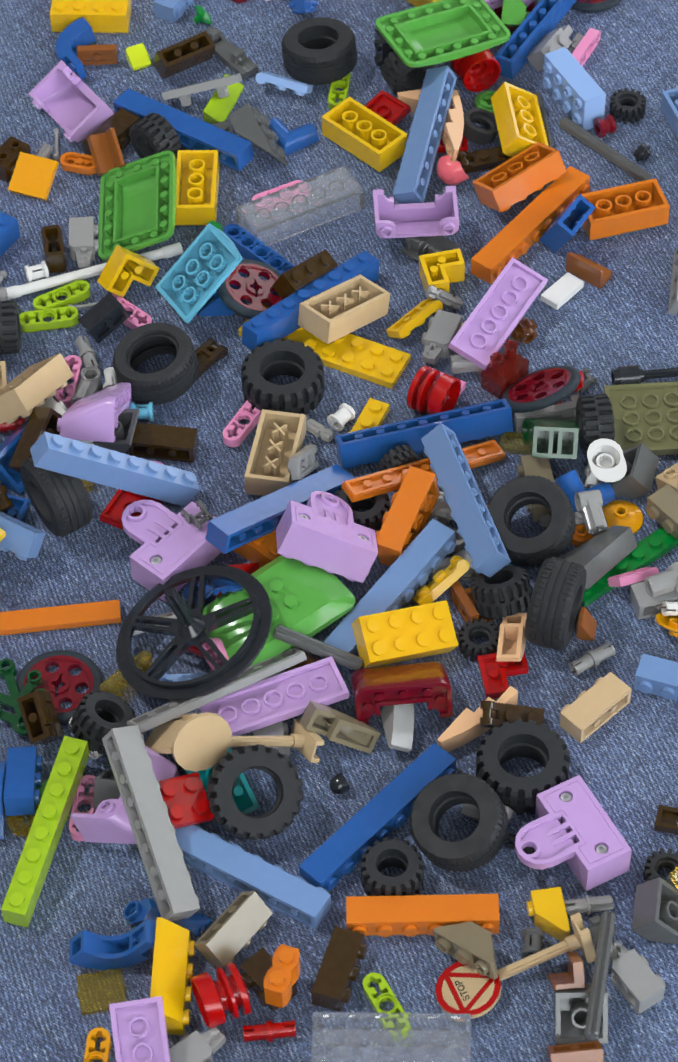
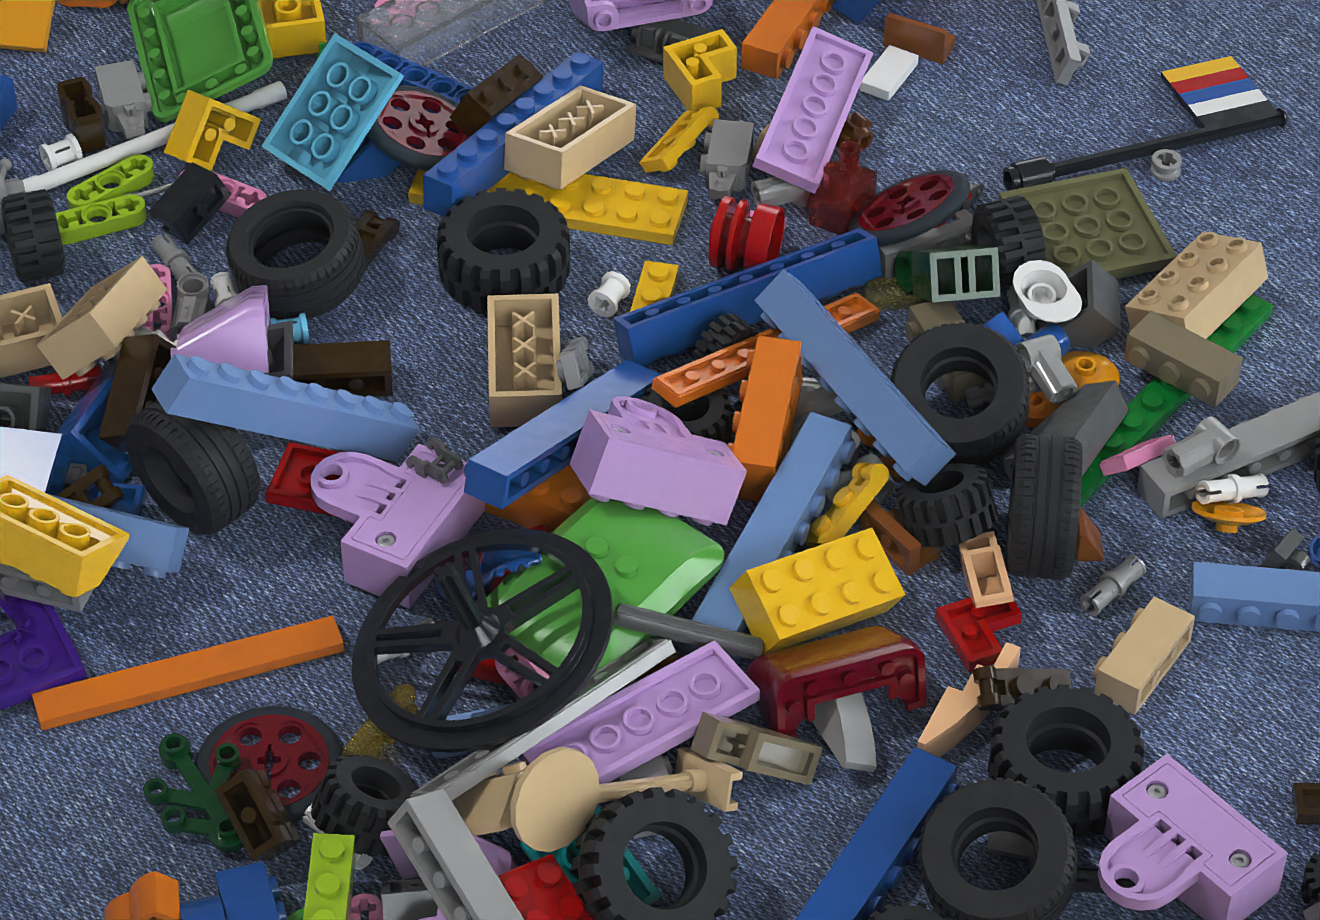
camera: 15 degrees left, 5 degrees down
(242, 430) = (459, 335): bright pink beam -> none
(318, 429) = (579, 318): light grey axle -> none
(339, 784) = (778, 838): black hinge -> none
(445, 297) = (725, 107): light grey axle -> none
(478, 629) = (930, 570): black tyre -> none

